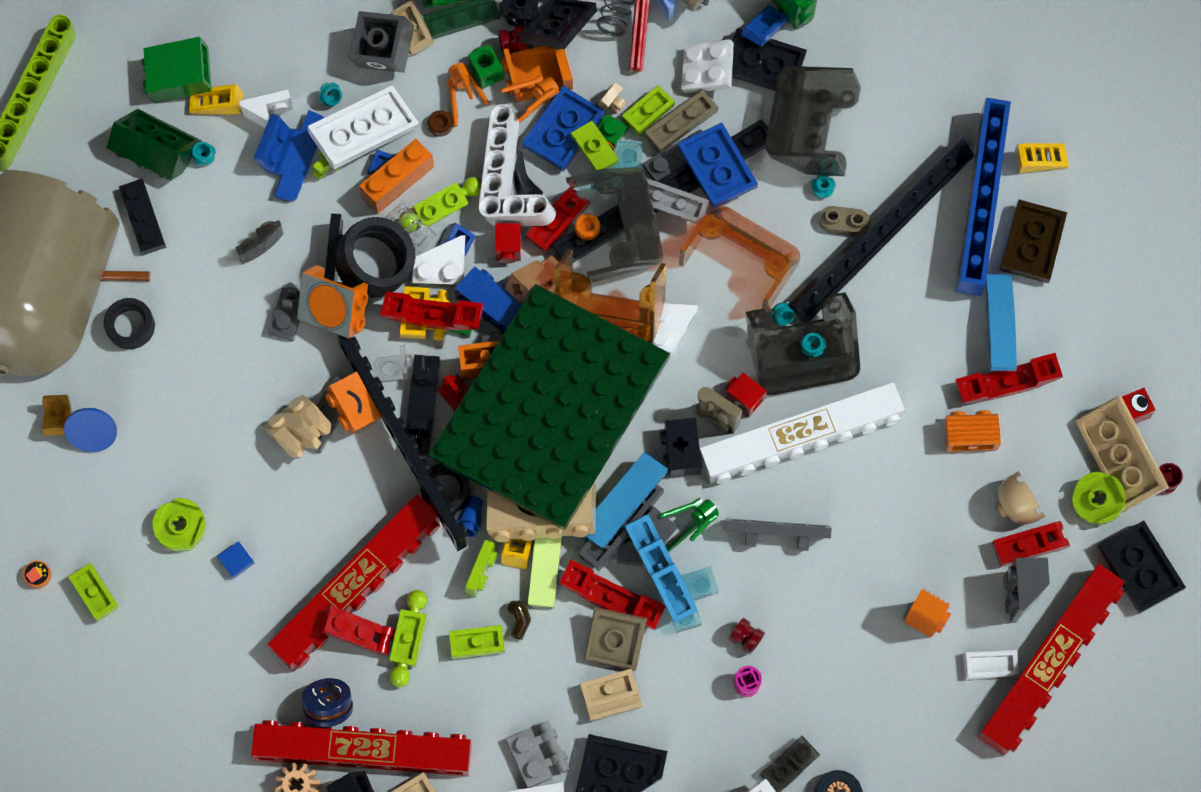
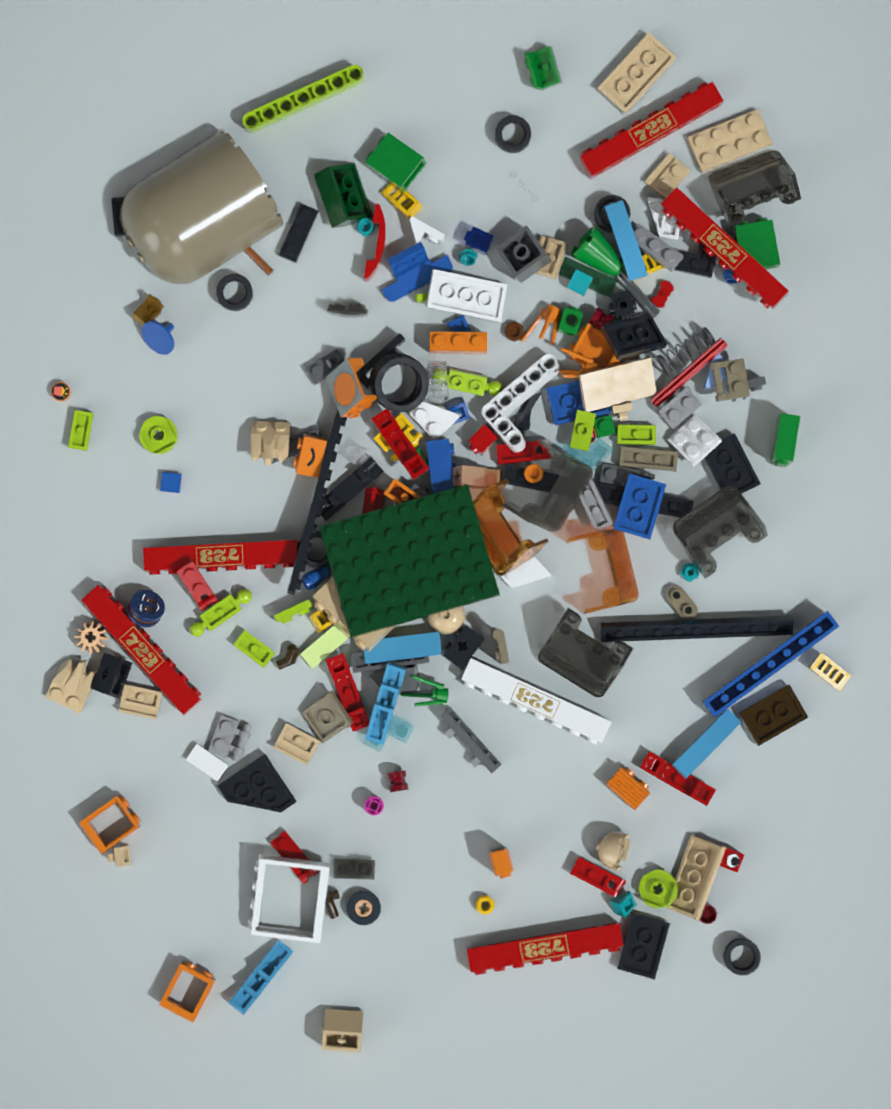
camera: 45 degrees right, 15 degrees up
(215, 136) = (372, 266): none -> red slope
(326, 69) = (478, 240): none -> clear blue brick
(459, 22) = (579, 282): none -> teal slope
(585, 77) = (617, 384): none -> tile
(640, 437) = (448, 621): none -> tan cylinder
(664, 53) = (679, 407): none -> light grey bracket
(745, 393) = (527, 649): red brick -> none
(764, 25) = (751, 446): blue tile -> none
(783, 314) = (593, 624): teal plate -> none
(813, 338) = (590, 653): teal plate -> none
(957, 669) = (489, 909): none -> yellow plate
(991, 664) = (511, 919): white tile -> none
(1025, 583) = (568, 899): dark grey slope -> none
(1081, 546) = (623, 904): none -> teal slope

